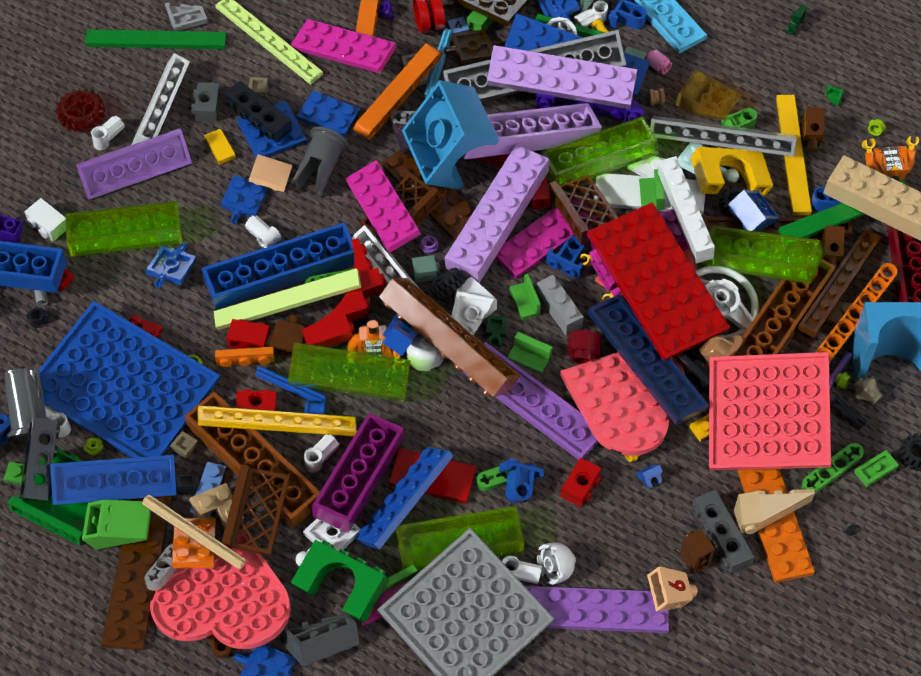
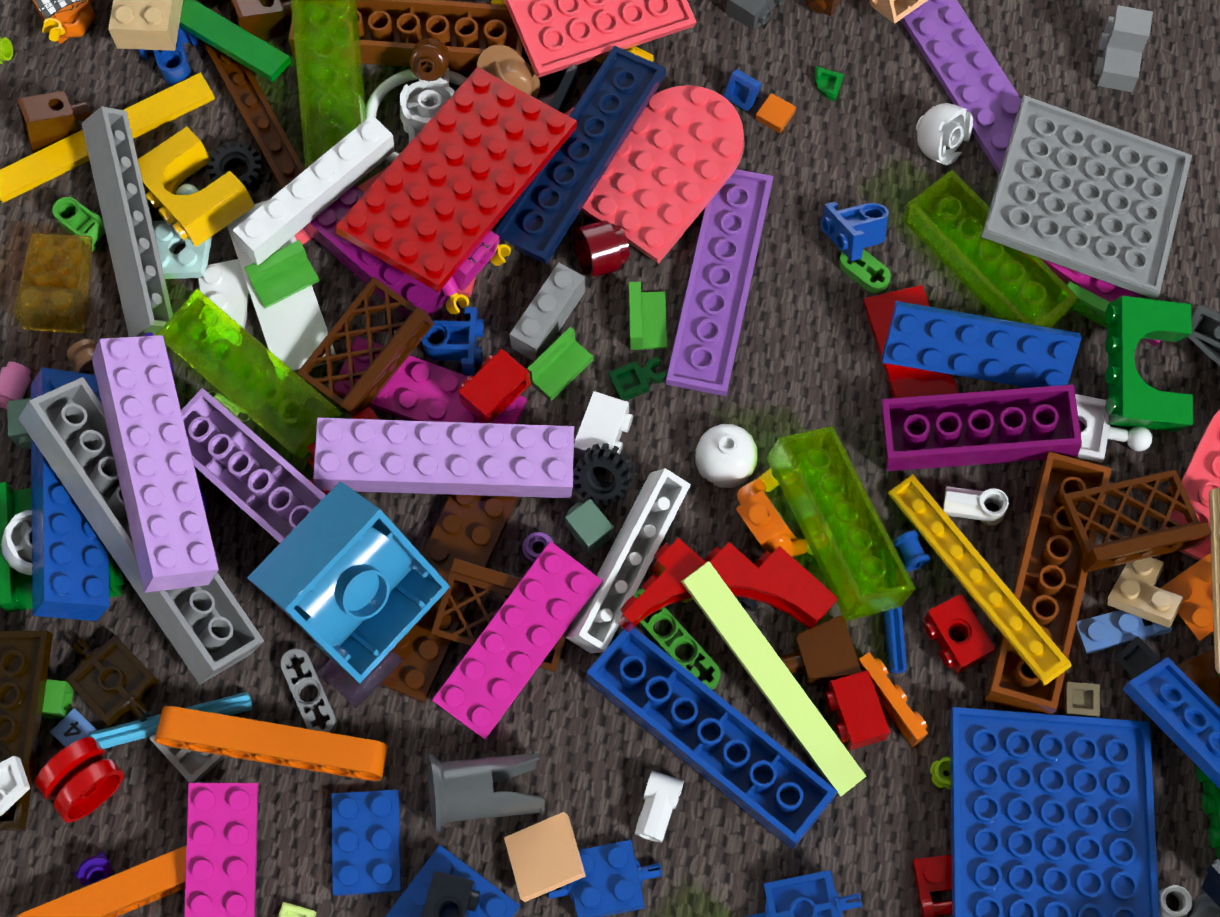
camera: 115 degrees left, 10 degrees up
(93, 450) = (1175, 827): lime plate -> none
(399, 335) = (741, 470): blue brick -> none
(449, 337) = (712, 404): brick -> none
(471, 310) = (650, 418): white wing -> none
(523, 570) = (977, 169): white piece -> none
(525, 252) = (494, 387): none -> red brick
(582, 472) = (796, 170): red brick -> none
(625, 486) = (775, 113): none -> orange tile
(630, 526) = (828, 82): none -> green tile
(748, 305) = (429, 59): none -> reddish brown head
(753, 210) = (253, 126): slope -> none

